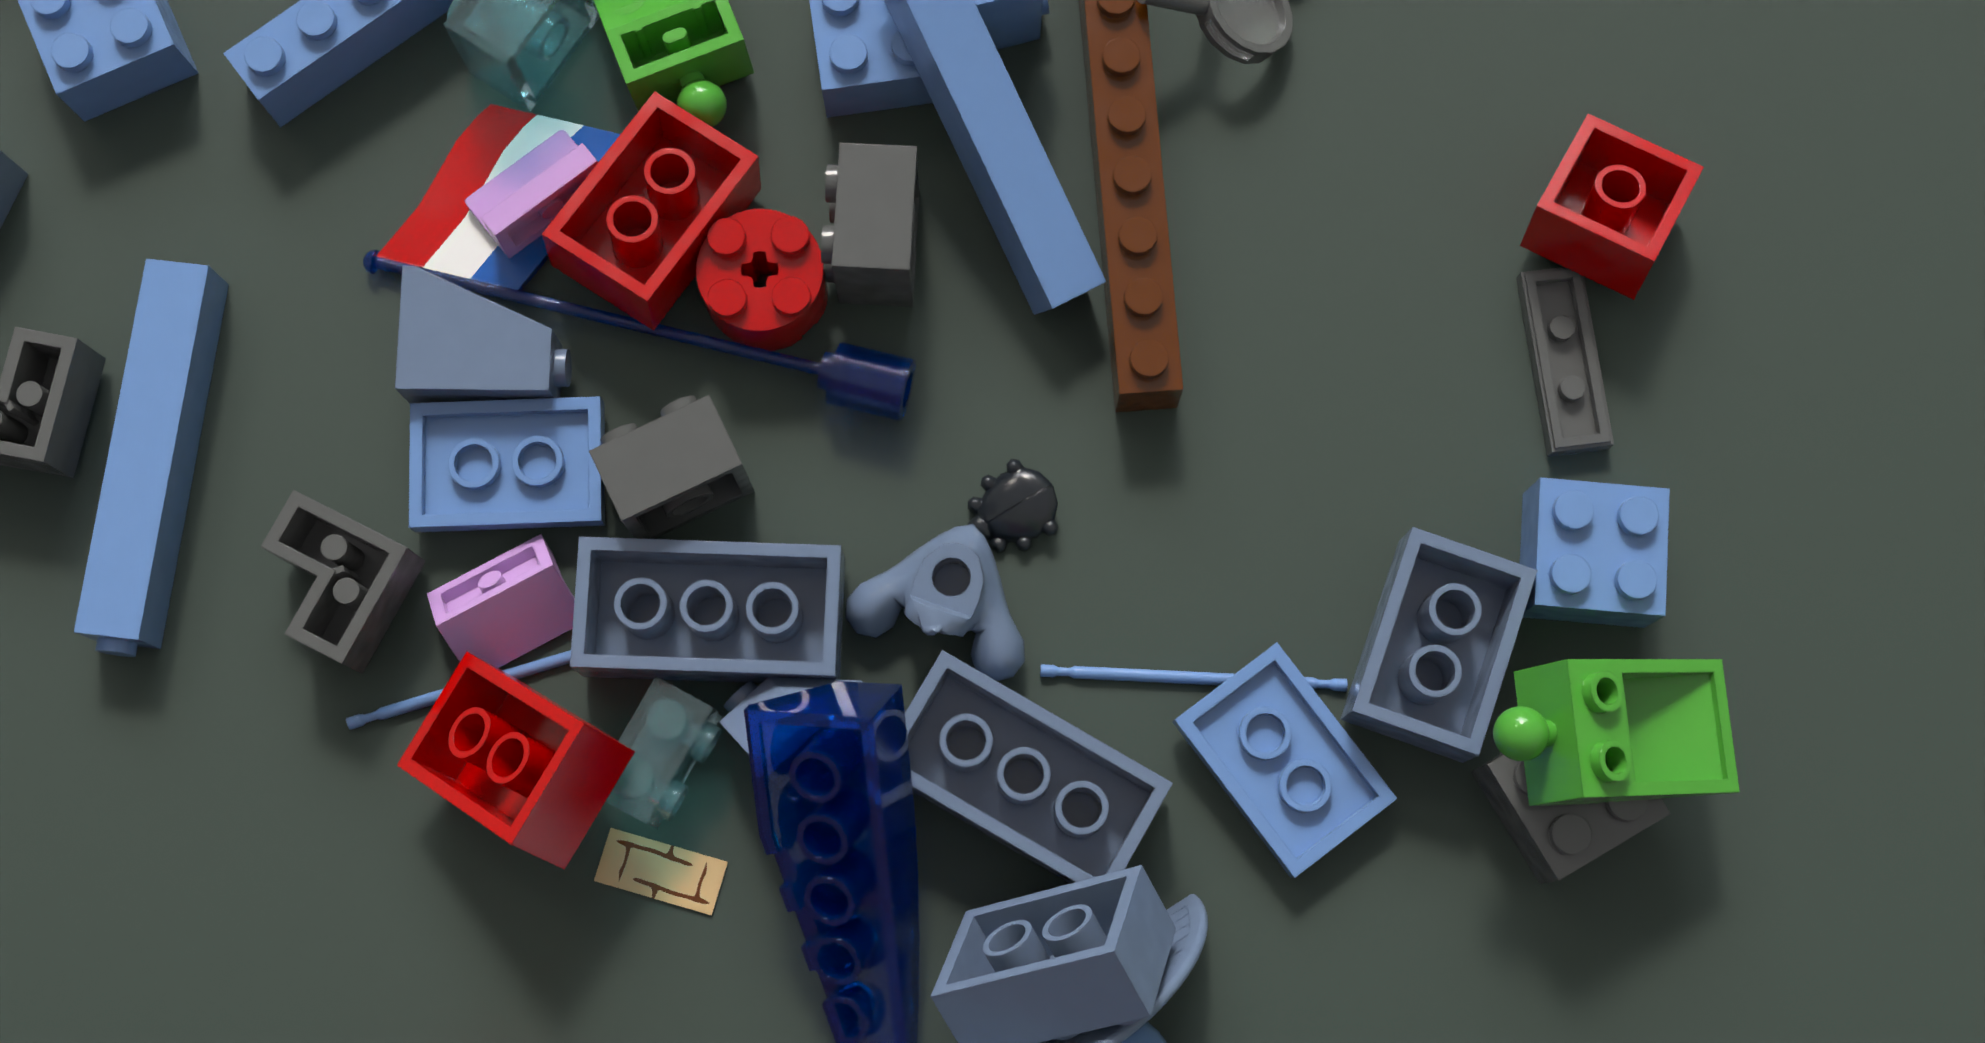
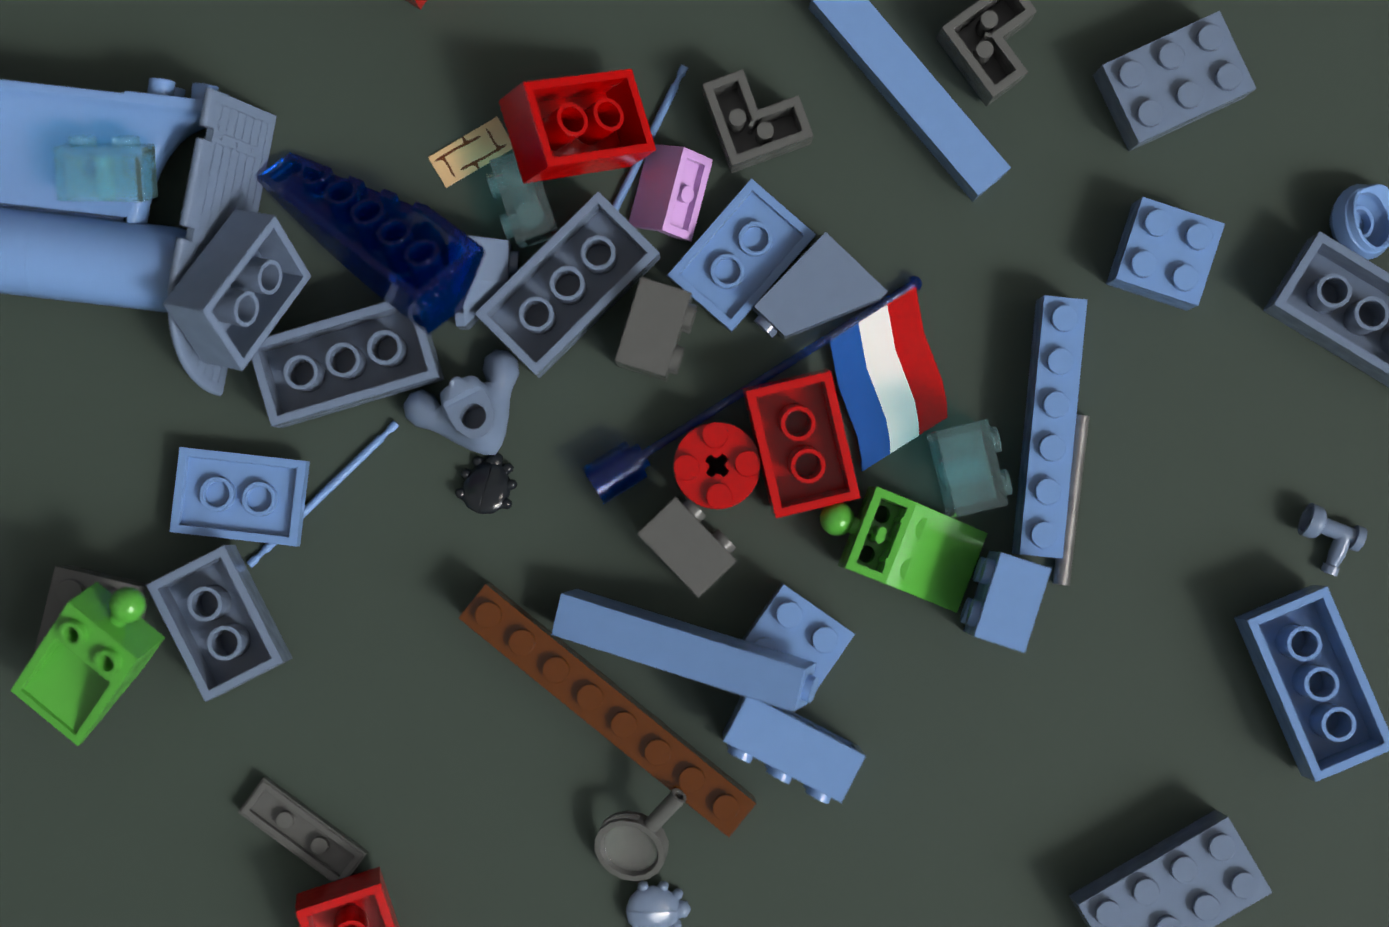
camera: 135 degrees right, 10 degrees up
(531, 192) = (873, 395): lavender panel -> none
(1596, 551) = (192, 745): medium blue brick -> none

